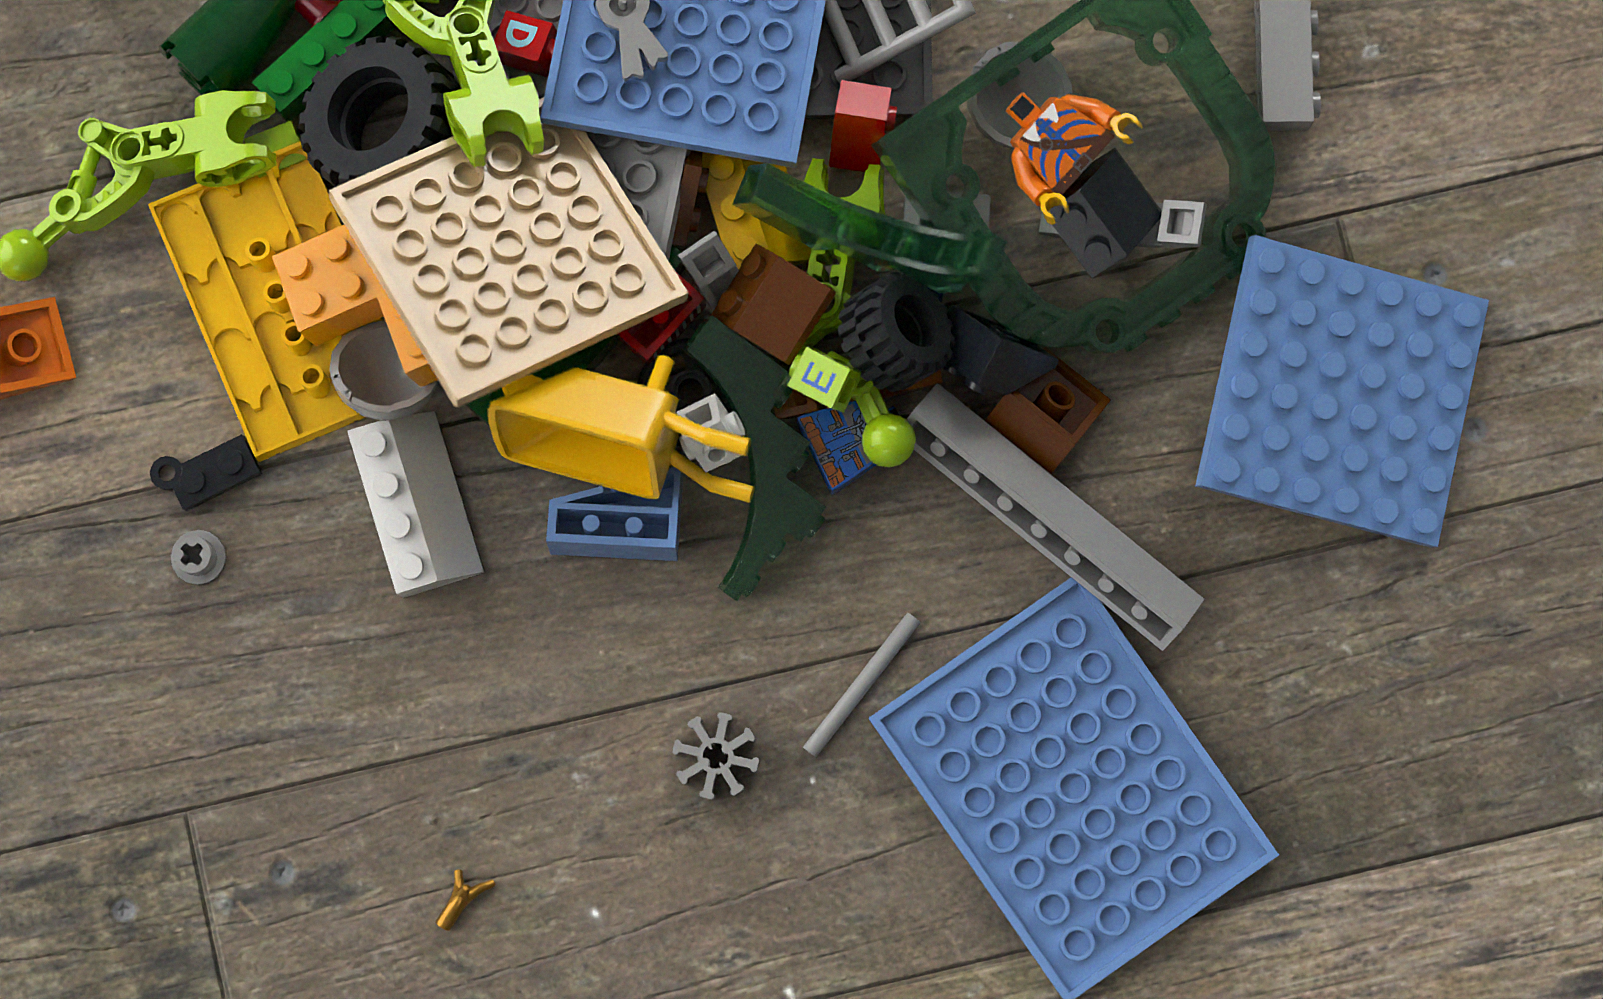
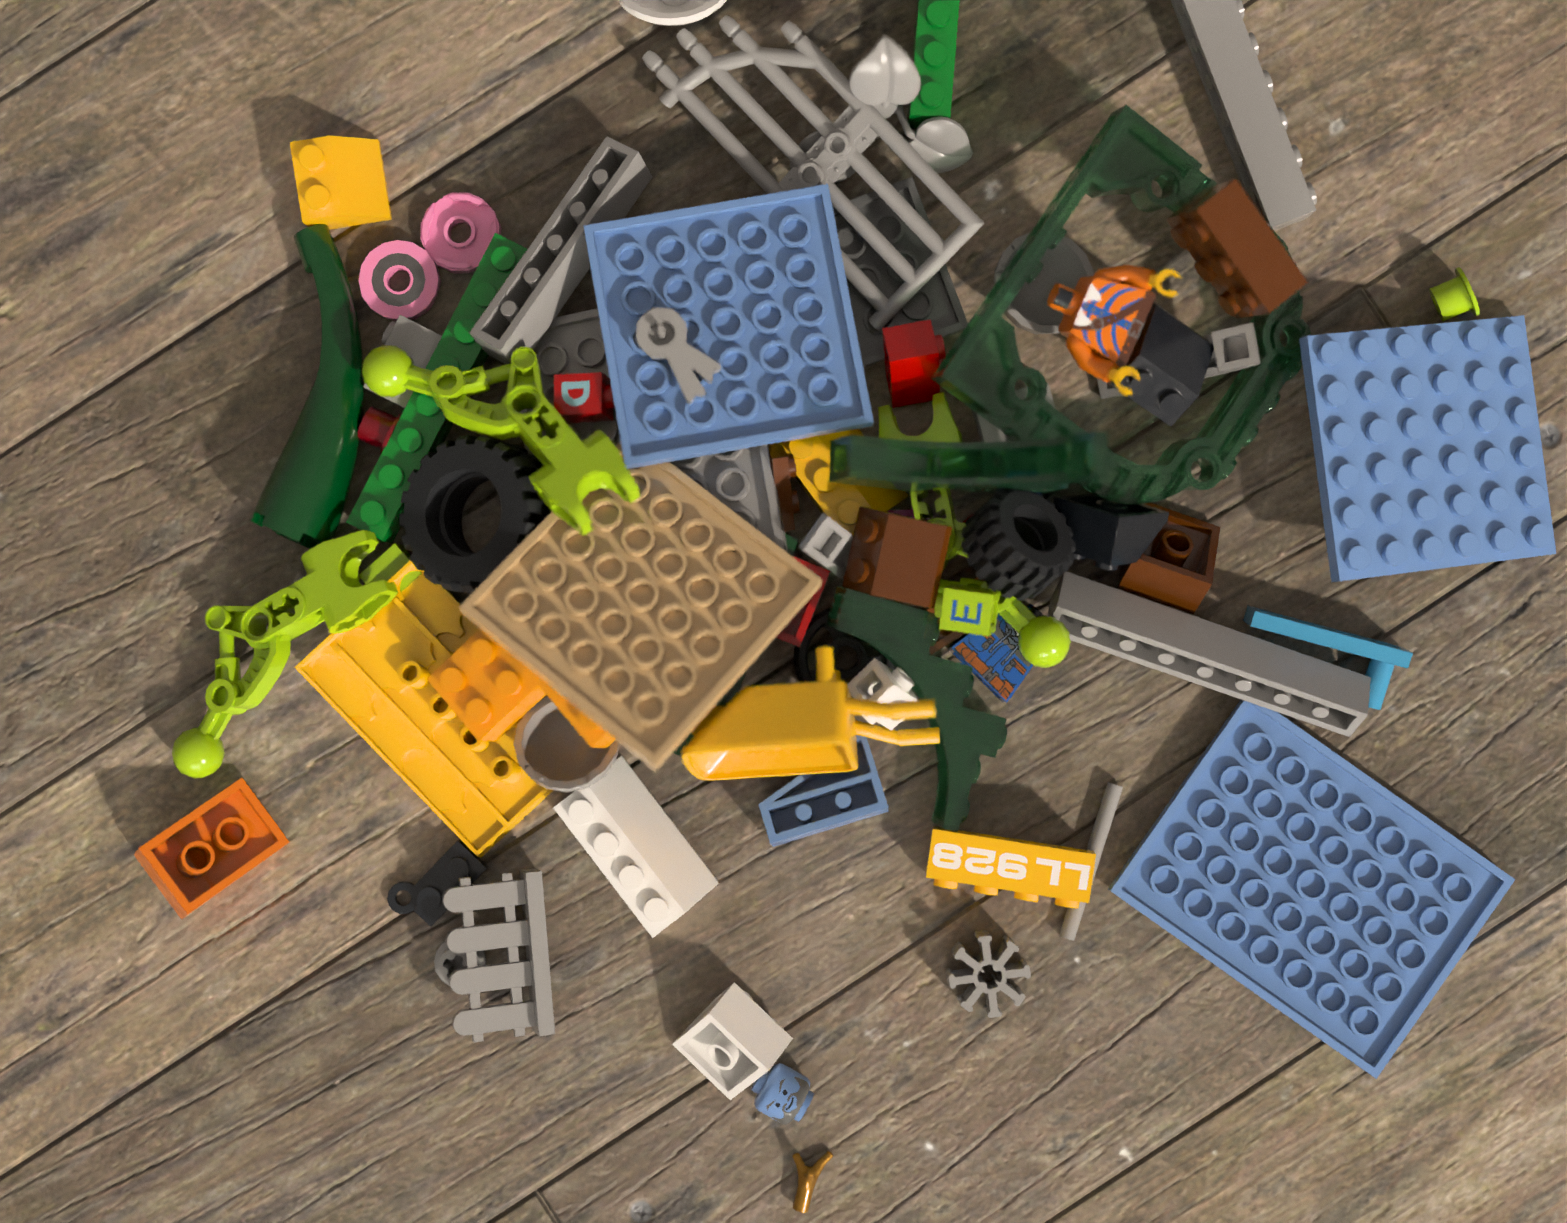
camera: 20 degrees left, 5 degrees up
(255, 541) = (512, 974): none -> light grey fence
(437, 730) = (733, 1041): none -> white slope
(467, 801) = (782, 1094): none -> medium blue head
(778, 655) = (1011, 865): none -> yellow brick
(1208, 124) = (1235, 250): none -> reddish brown piece
(1226, 583) = (1382, 655): none -> dark azure piece
(1423, 256) = (1454, 297): none -> lime piece

